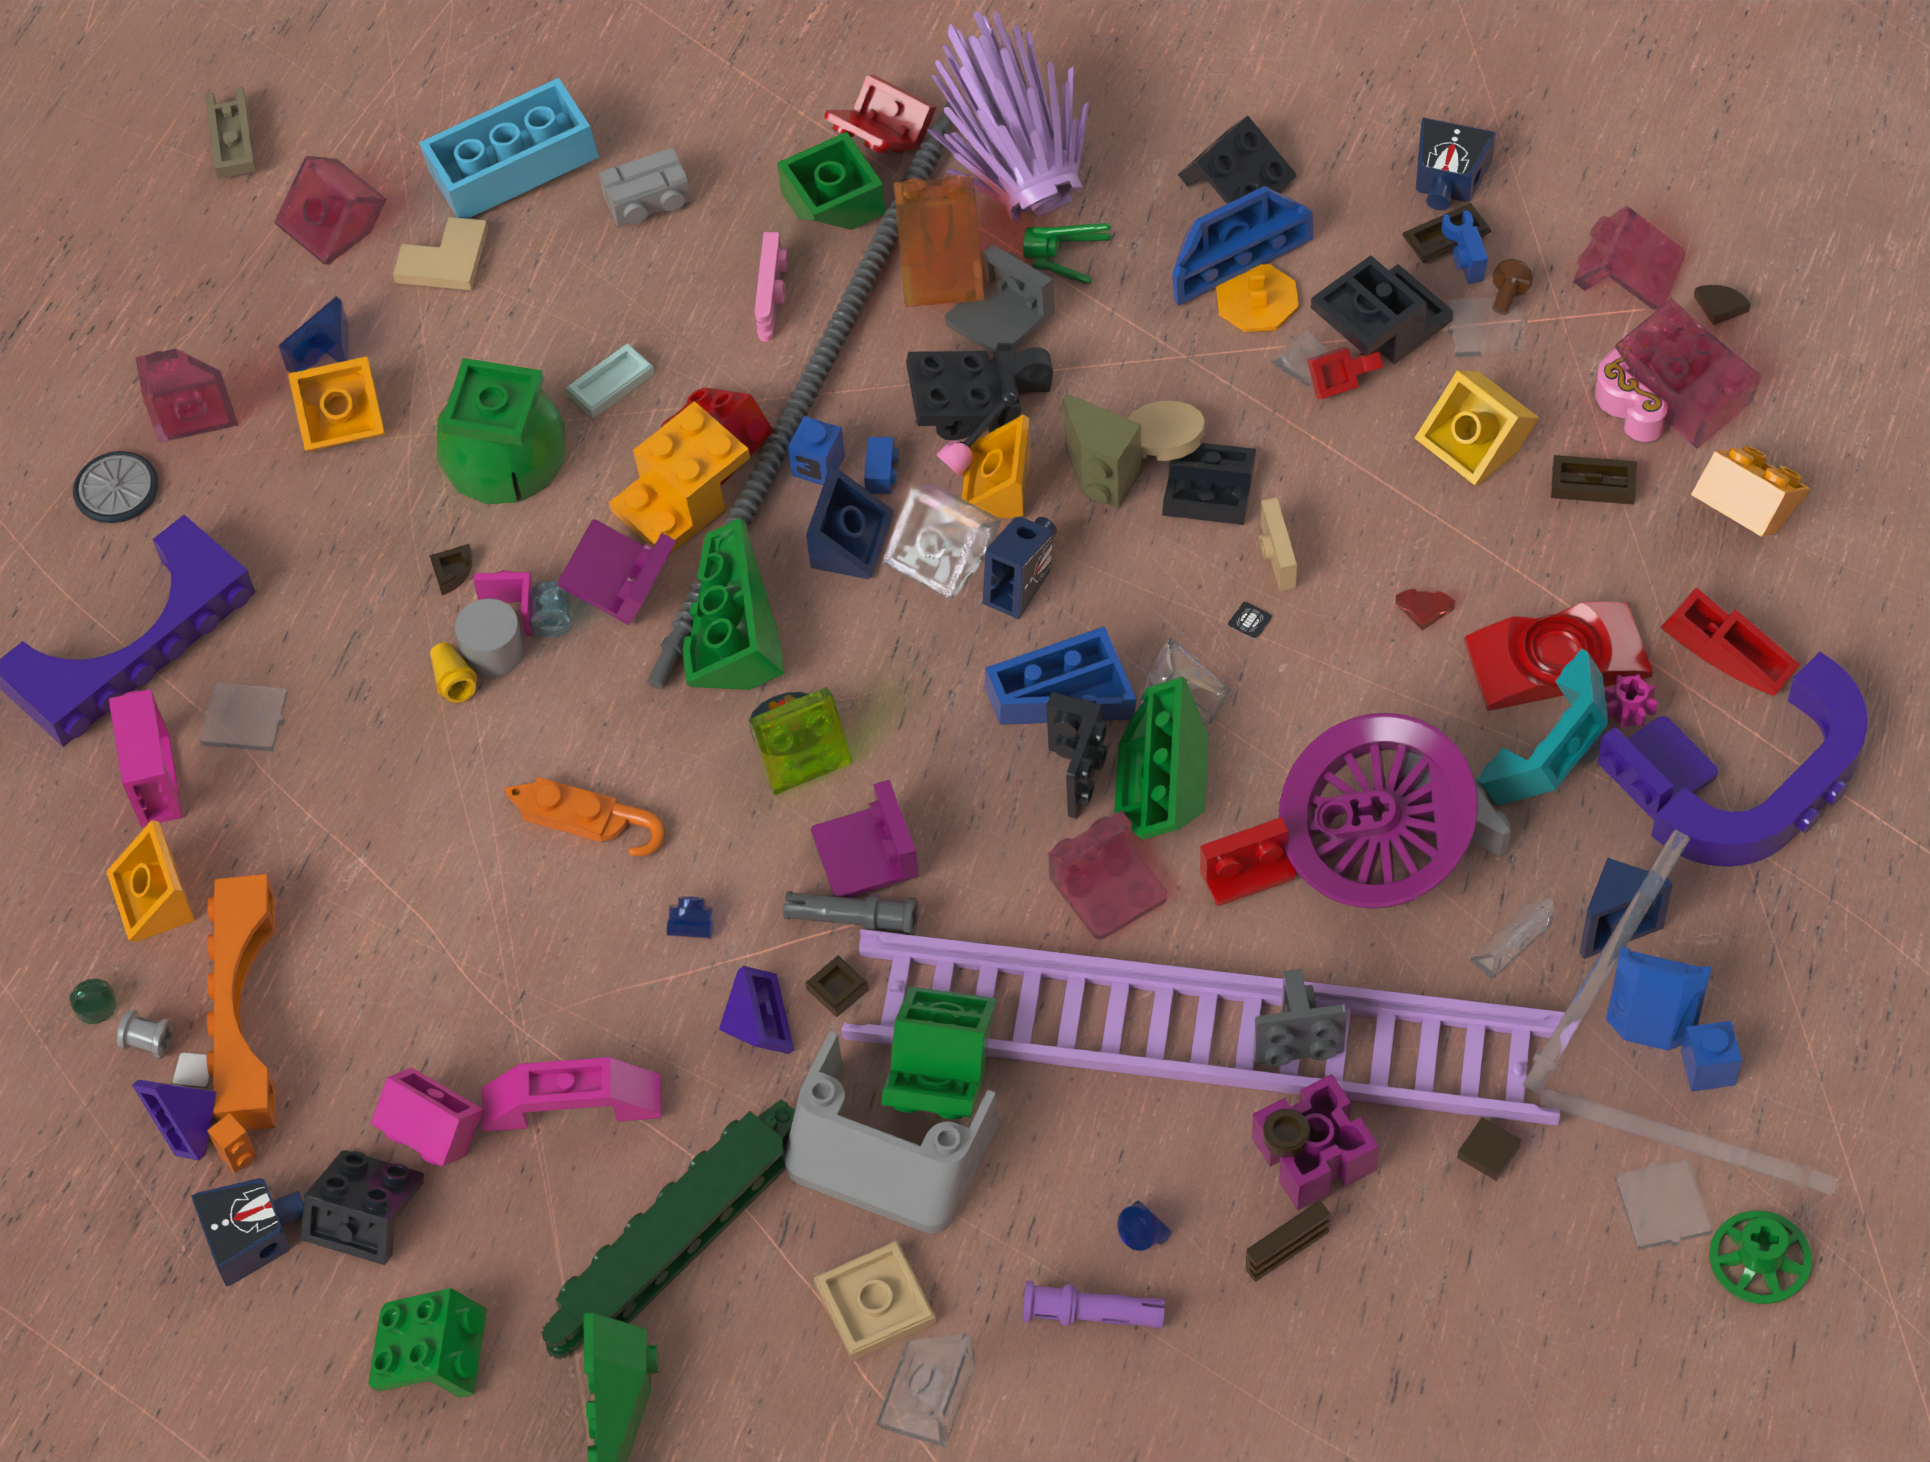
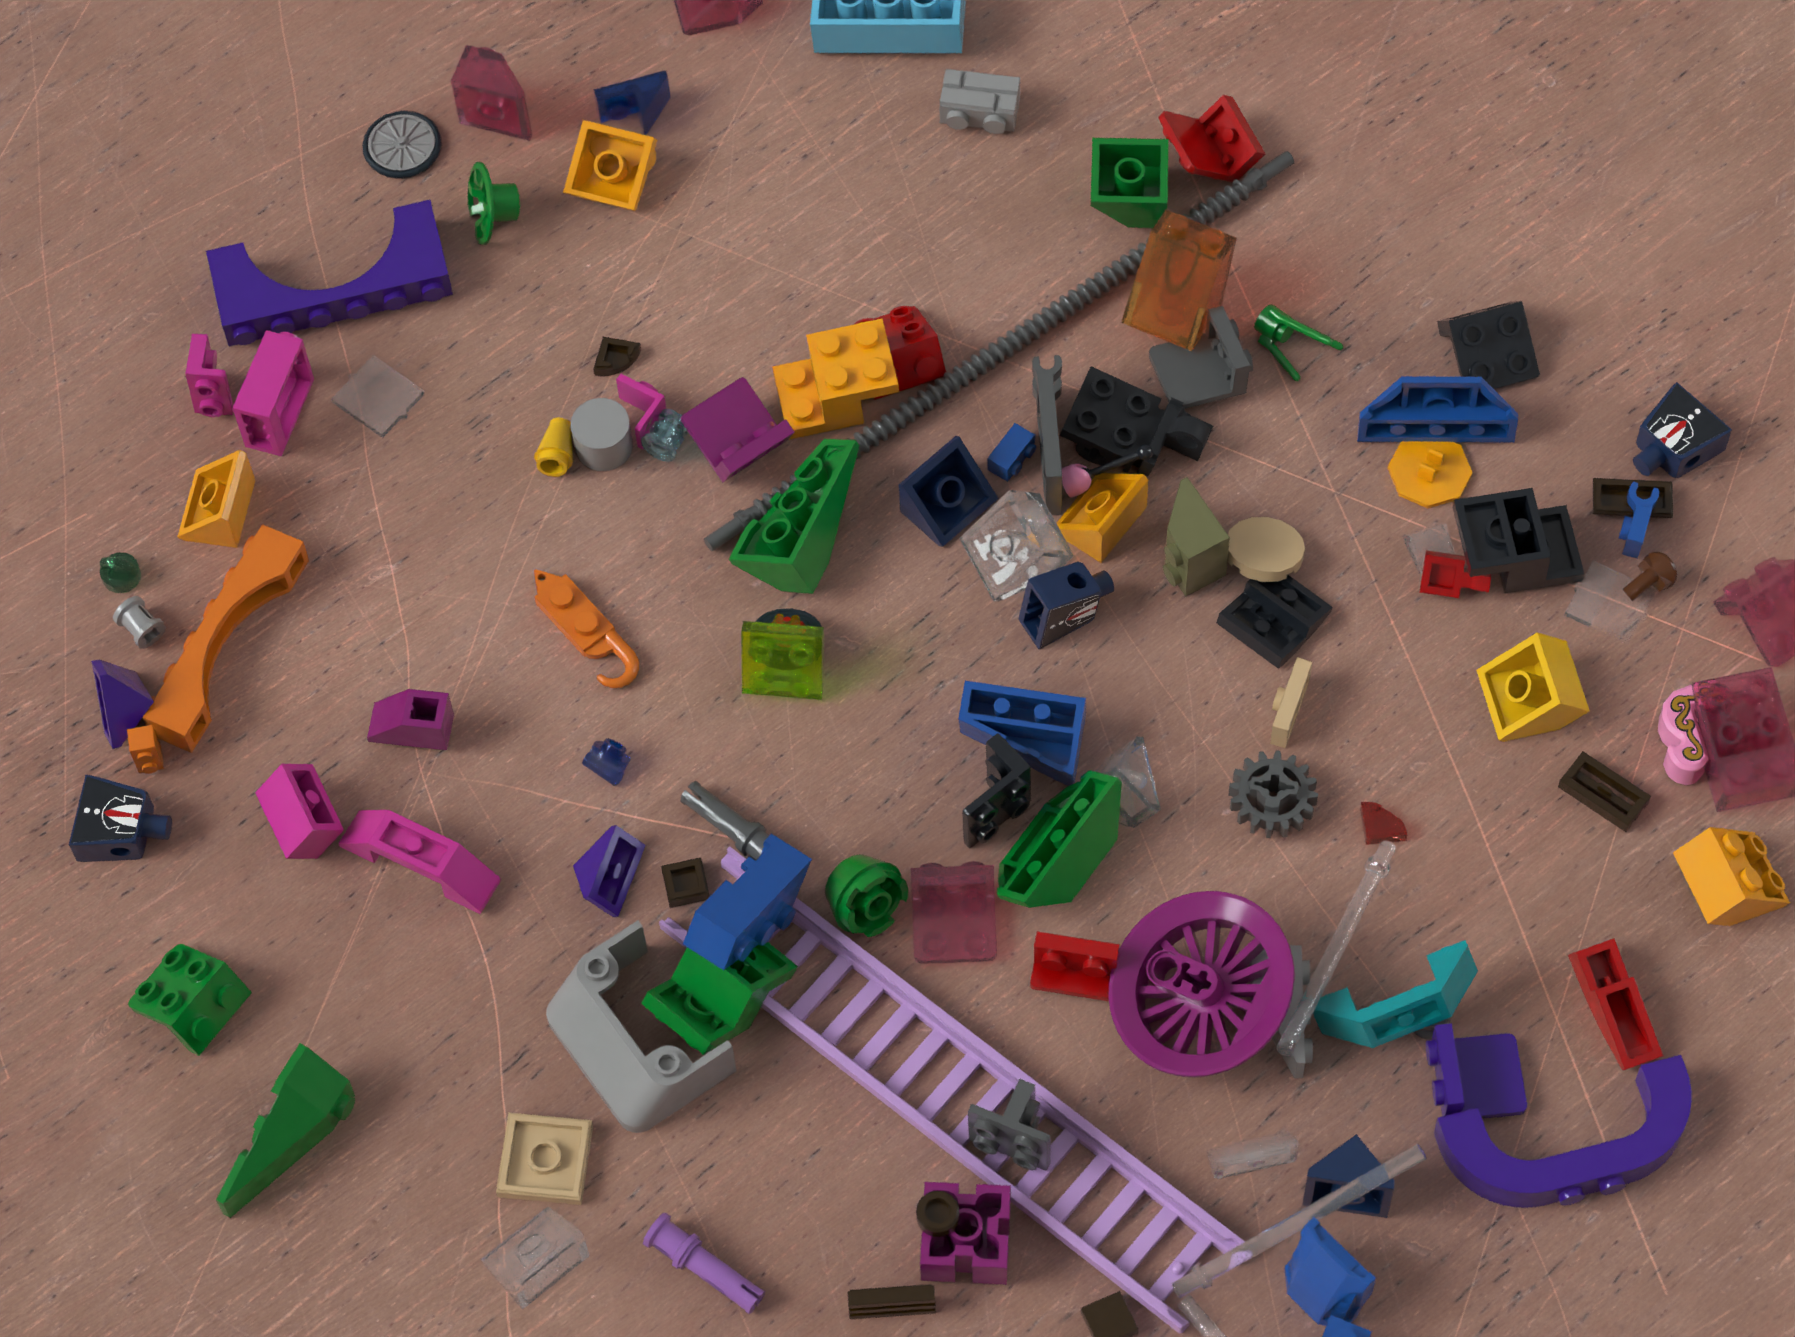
camera: 30 degrees right, 5 degrees up
(75, 781) = (207, 384): none -> dark pink bracket
(191, 1070) = (156, 669): white sticker -> none
(245, 488) = (495, 202): none -> green wheel
(357, 1205) = (208, 849): black bracket -> none
(446, 266) = (782, 87): tan tile -> none
(479, 978) = (413, 719): none -> magenta slope
(499, 425) = (719, 256): green plate -> none
(610, 381) = (844, 259): light aqua tile -> none
(674, 1228) = (429, 1010): dark green hinge -> none
(770, 287) = (1024, 243): bright pink hinge -> none
(815, 450) = (964, 412): blue brick -> none
(867, 847) = (781, 779): magenta bracket -> none
(909, 426) = (1046, 390): none -> dark grey tile
(927, 960) = (751, 908): none -> blue wedge
(1016, 901) = (865, 894): none -> green cone
(1023, 141) = (1304, 227): lavender plant -> none
(1141, 1228) = (788, 1221): clear blue plate -> none
(1249, 620) = (1227, 755): black sticker -> none
(1317, 627) = (1292, 796): none -> dark grey gear
(1449, 642) = (1376, 868): none -> clear bar
(1525, 655) = (1435, 912): red slope -> none
(1630, 701) = (1493, 1016): dark pink gear -> none

